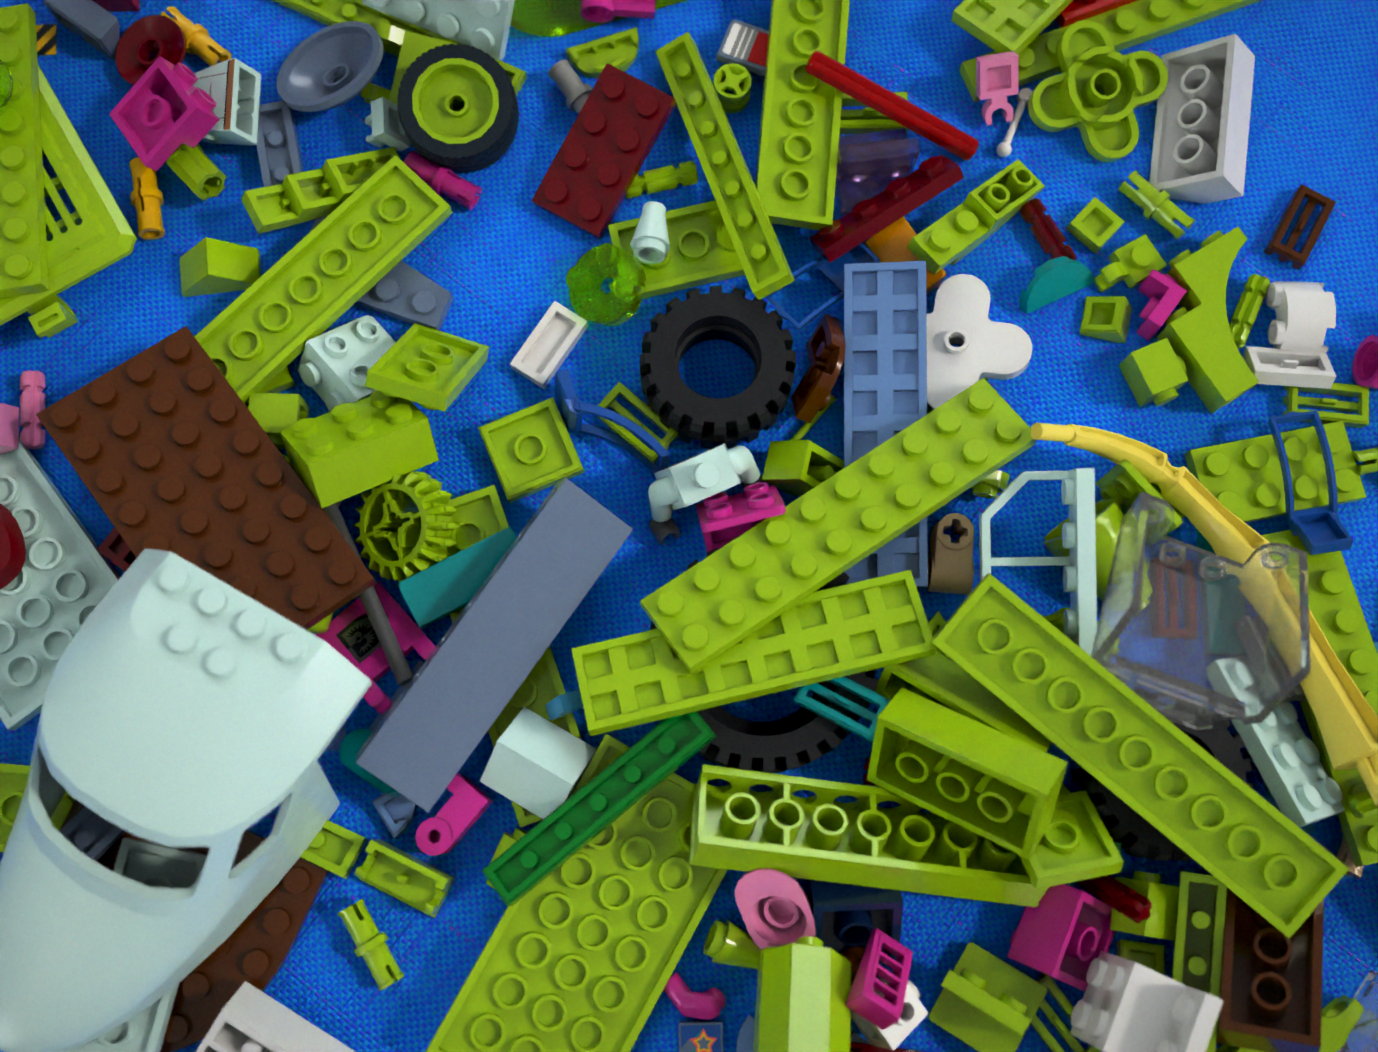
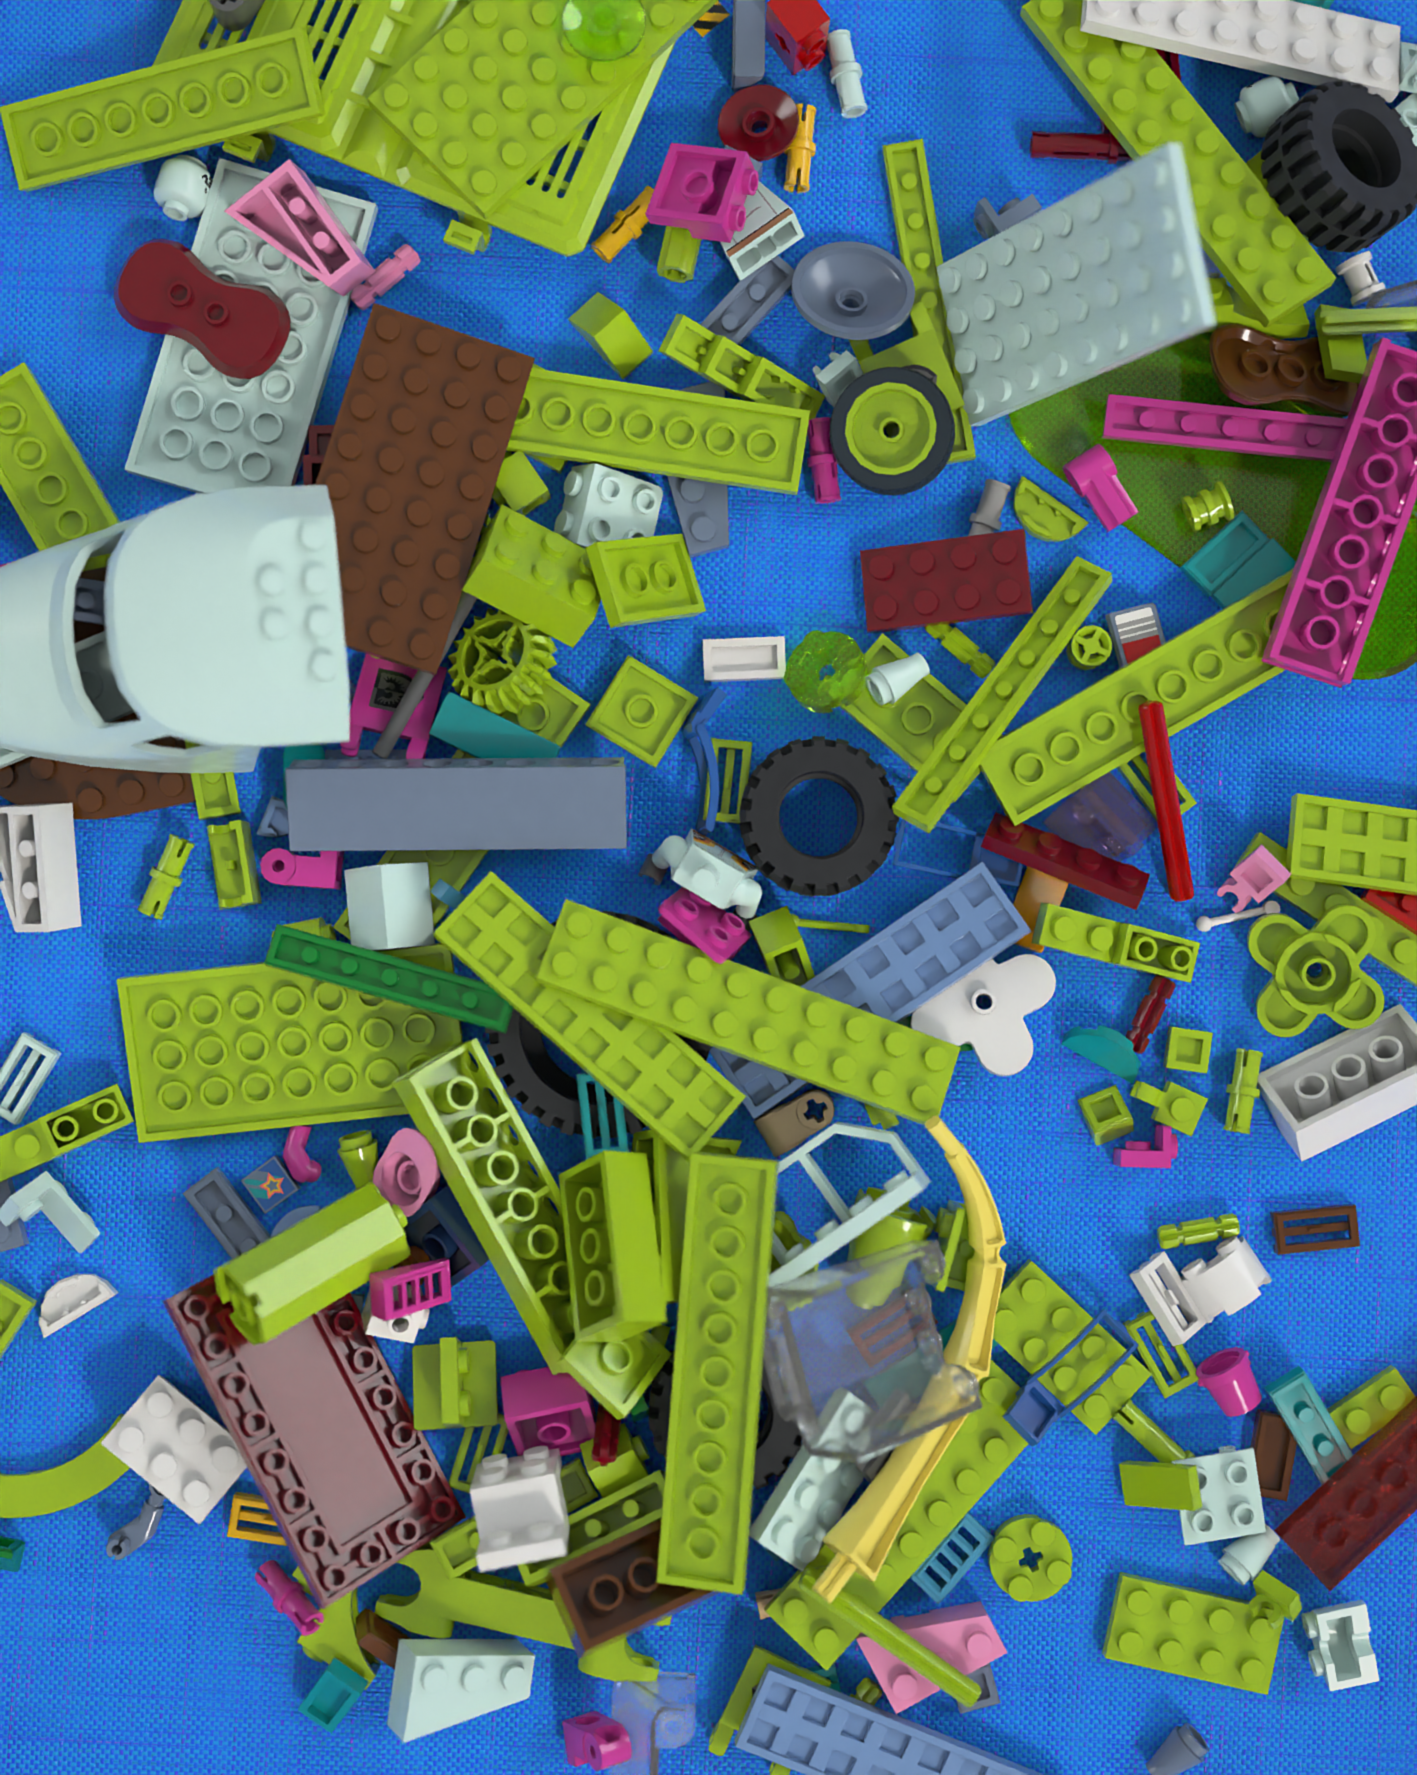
camera: 50 degrees right, 10 degrees up
(826, 358) = (872, 909): reddish brown plate -> none
(1154, 373) = (1080, 1188): lime brick -> none
(1201, 326) = (1143, 1206): lime arch -> none

